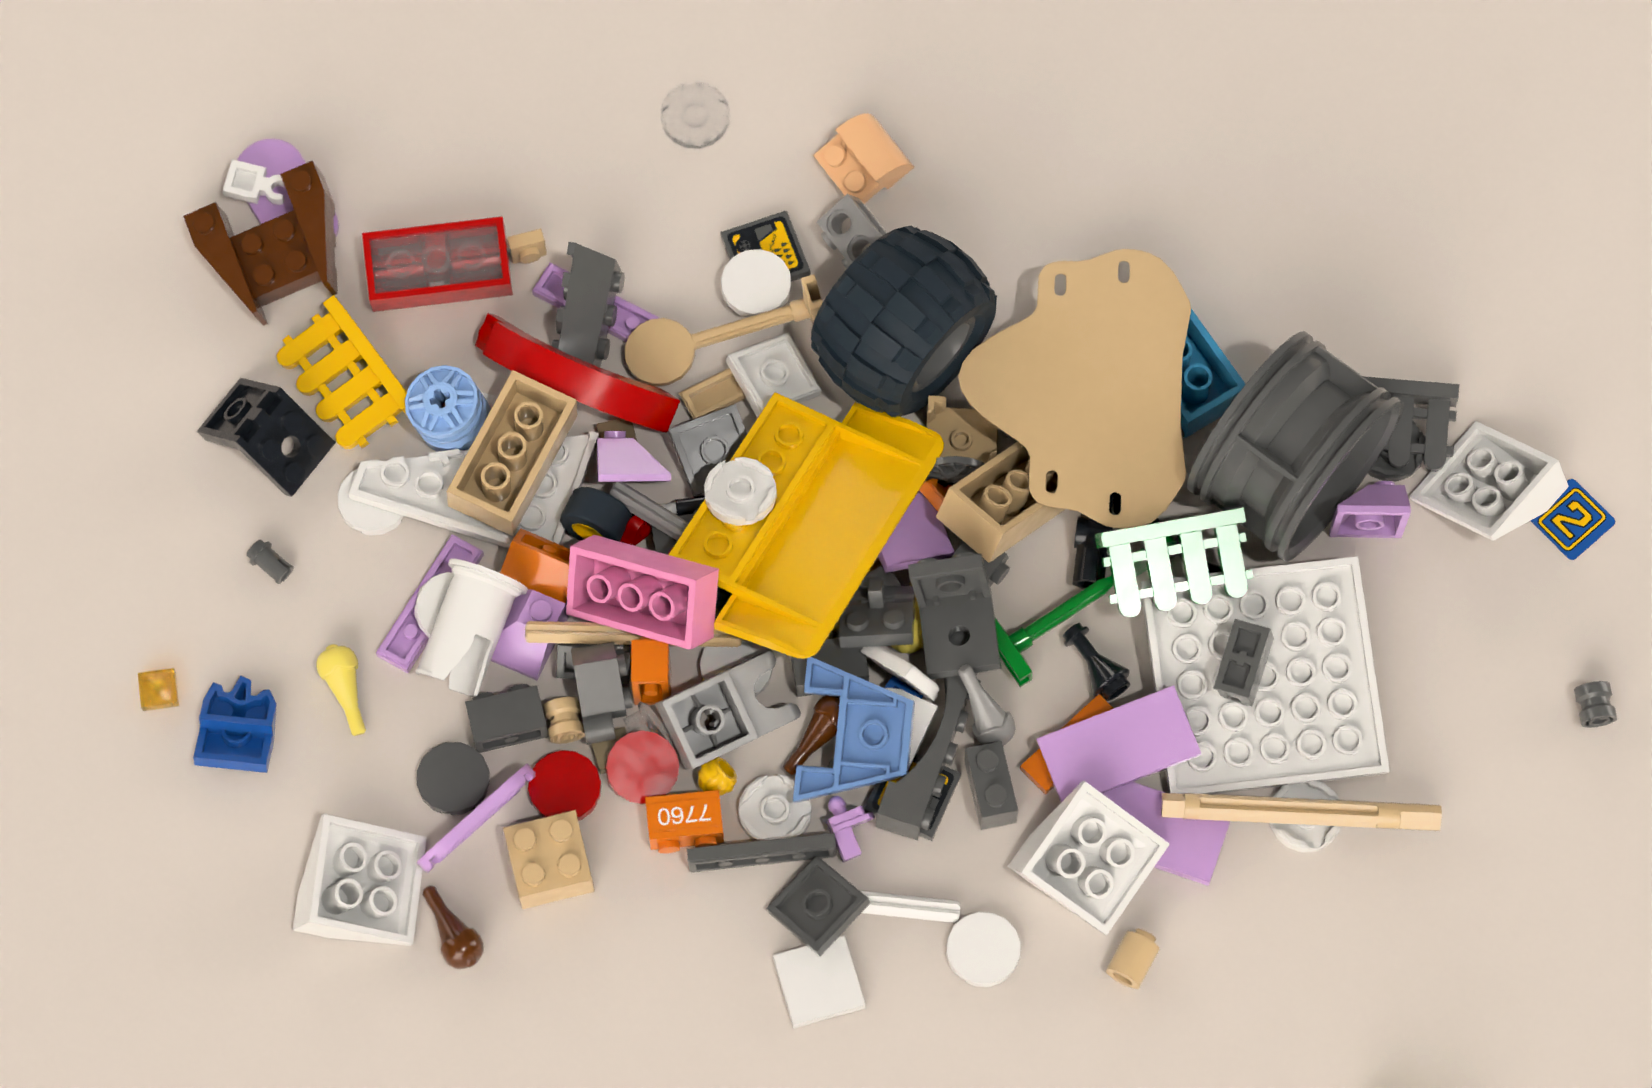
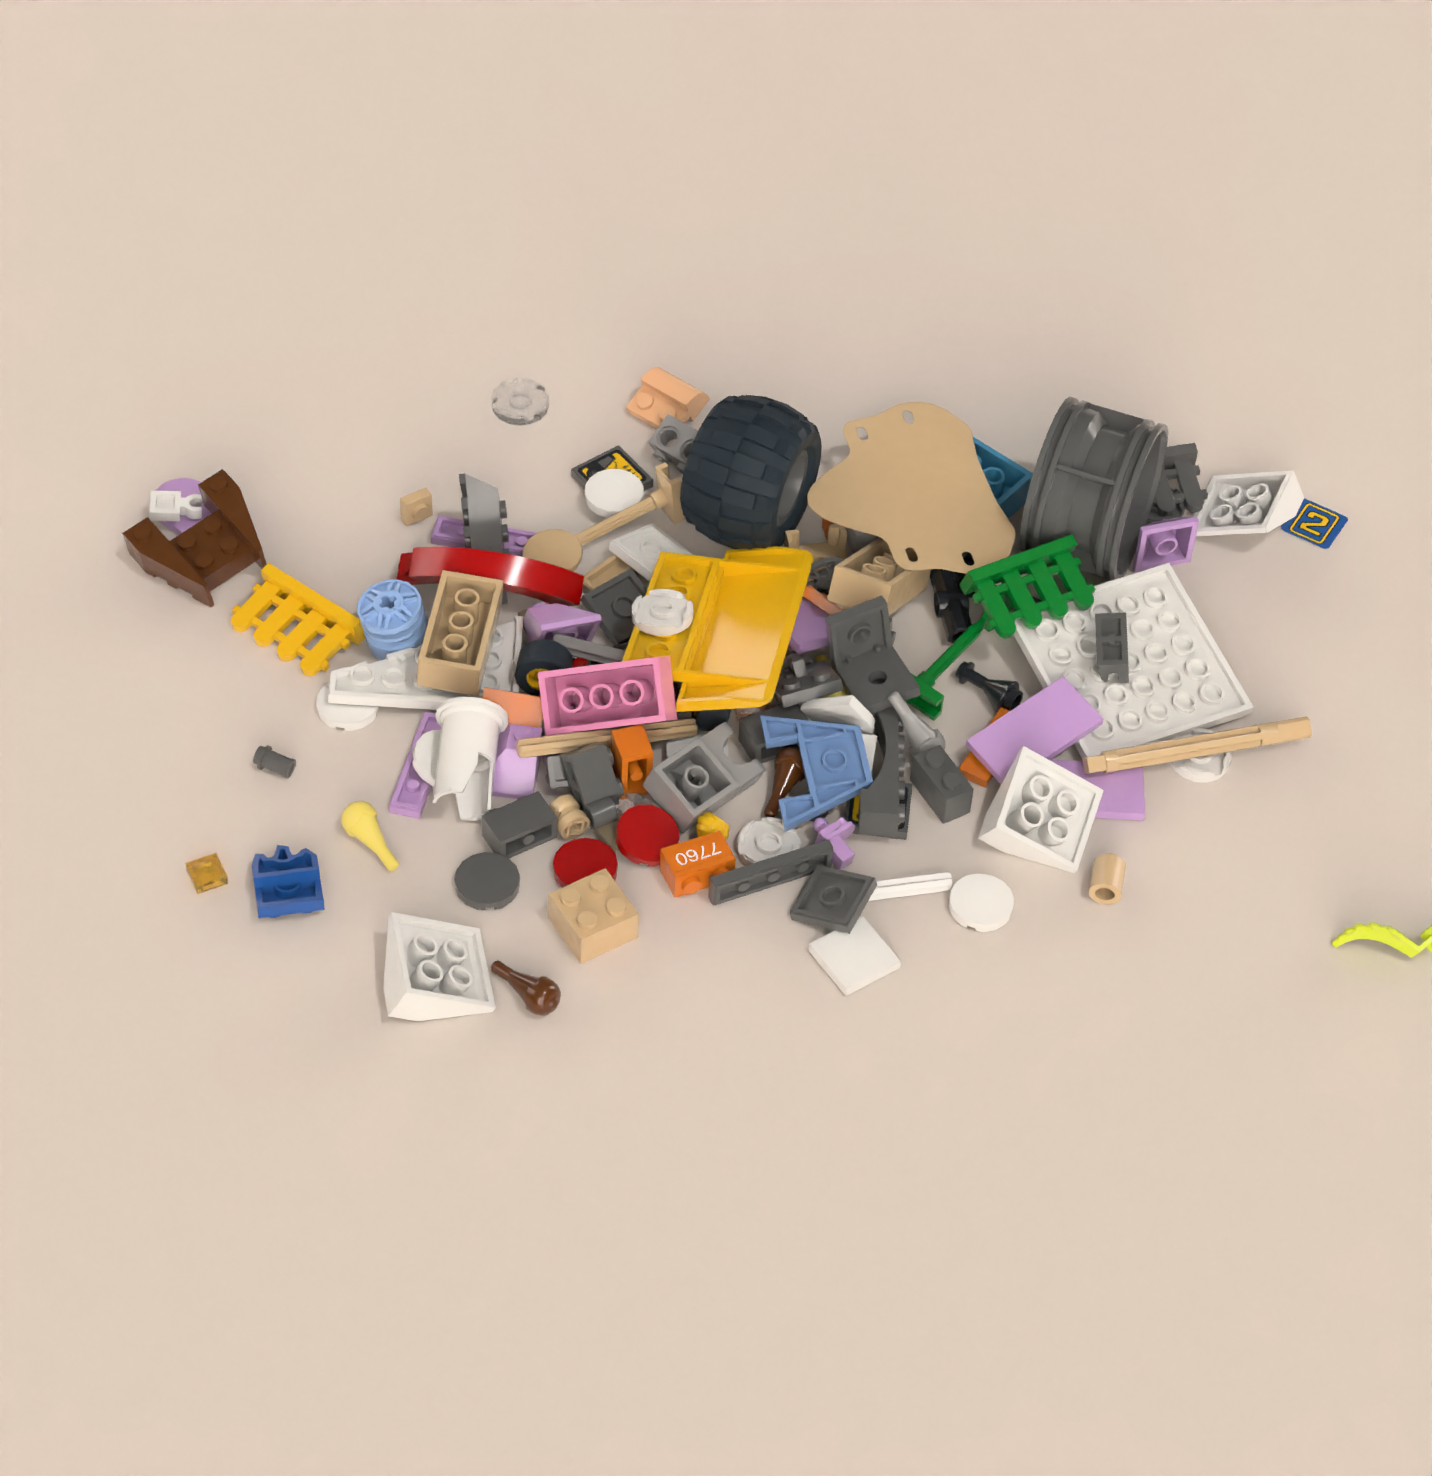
camera: 20 degrees left, 20 degrees down
(257, 421) = (239, 658): black bracket -> none
(437, 264) = (347, 529): brick -> none
(476, 818) = (521, 895): lavender tile -> none
(1595, 704) = (1392, 633): dark grey wheel -> none

